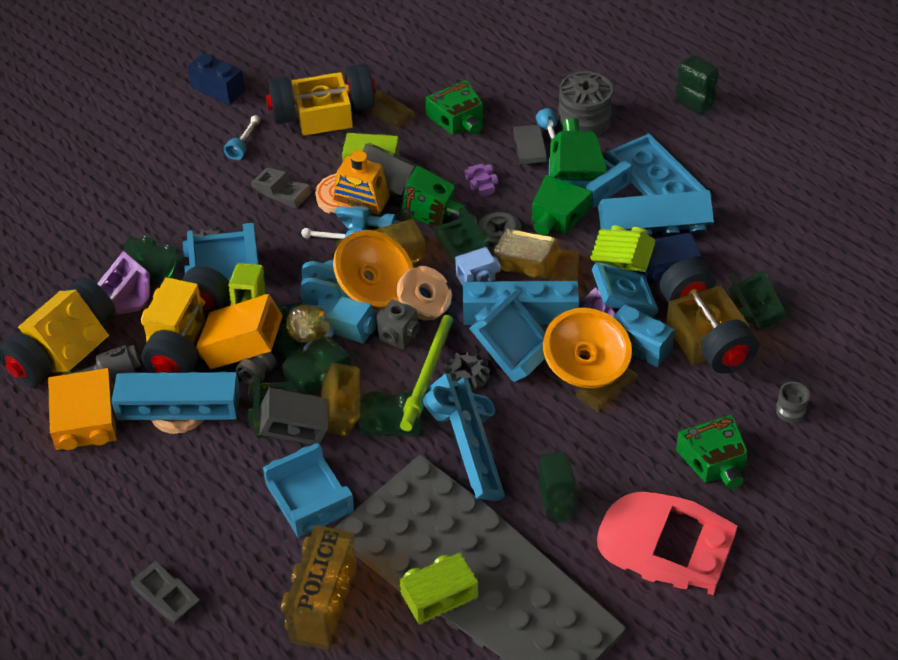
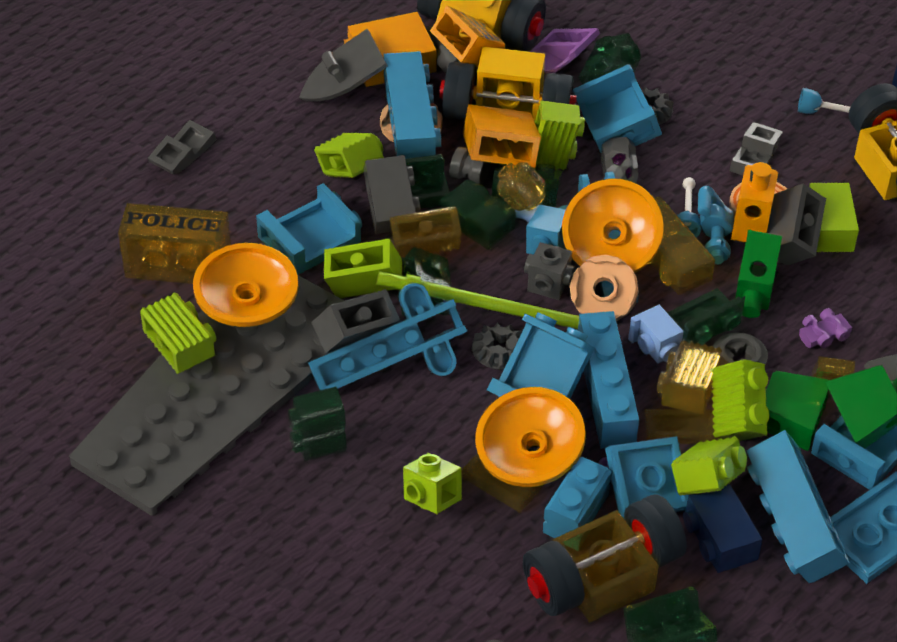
camera: 80 degrees right, 0 degrees up
(107, 441) = (344, 69): none -> dark grey shield
(118, 333) = (466, 48): none -> light orange torso
(229, 445) = (347, 154): none -> lime brick
(280, 269) = (619, 156): none -> dark grey rock
(380, 444) = (355, 267): none -> lime brick
(394, 511) = (245, 284): none -> light orange dish
(449, 450) = (354, 320): none -> dark grey brick
(538, 173) = (832, 368): none -> clear yellow tile
(559, 222) = (740, 400): none -> lime brick
(620, 420) = (432, 483): none -> lime brick
(634, 529) = (281, 510): coral slope -> none
(714, 451) = (403, 585): green torso -> none

